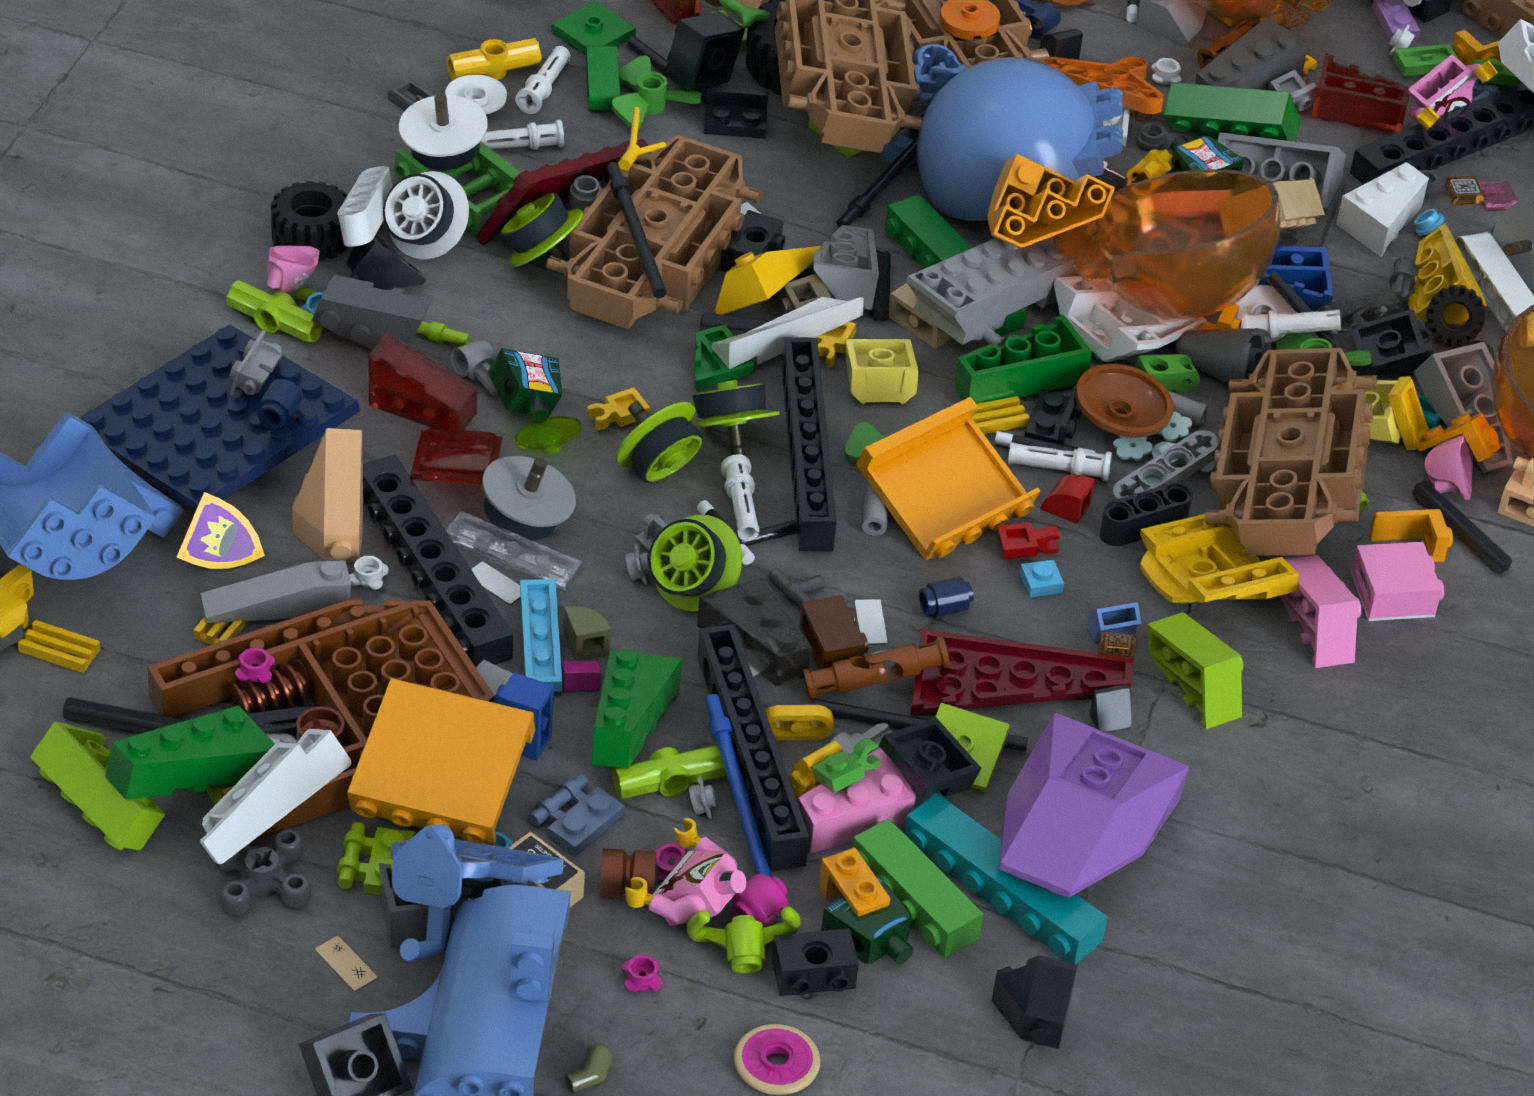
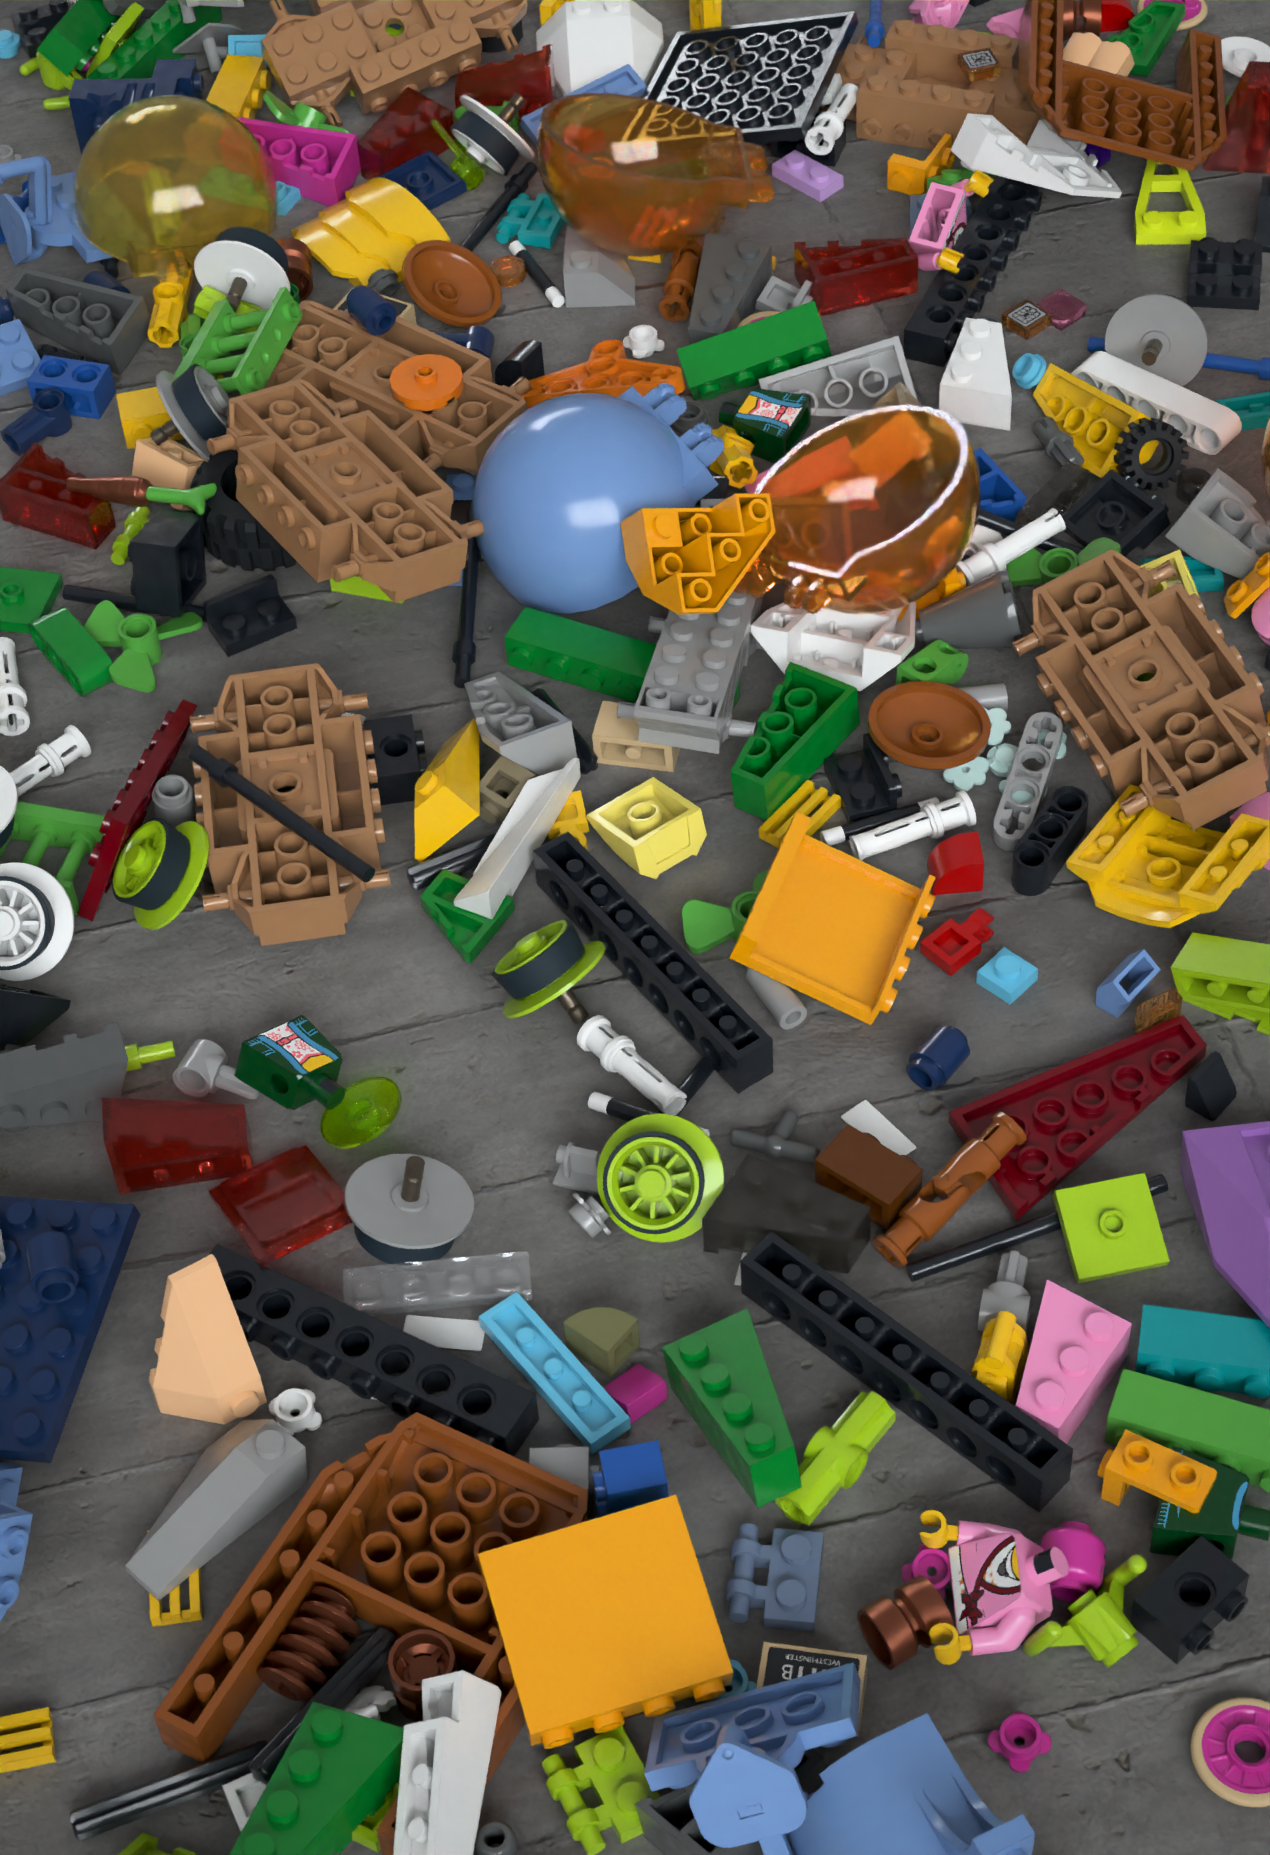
camera: 25 degrees left, 5 degrees up
(219, 536) = (91, 1476): shield -> none
(255, 665) = (284, 1619): dark pink plate -> none
(616, 409) = (411, 1031): yellow plate -> none
(634, 150) = (200, 720): yellow plant -> none
(660, 441) = (507, 1053): piece -> none
(702, 798) = (898, 1467): light grey plate -> none
(721, 731) = (866, 1374): blue bar -> none
(800, 722) = (924, 1302): yellow plate -> none
(843, 769) = (1041, 1343): bright green plate -> none
(931, 758) = (1111, 1267): black plate -> none
(934, 69) = (451, 457): medium blue head -> none
(1401, 39) = (837, 195): white plate -> none
(1408, 412) = (1202, 582): yellow tile -> none
(1421, 59) = (875, 203): bright green plate -> none

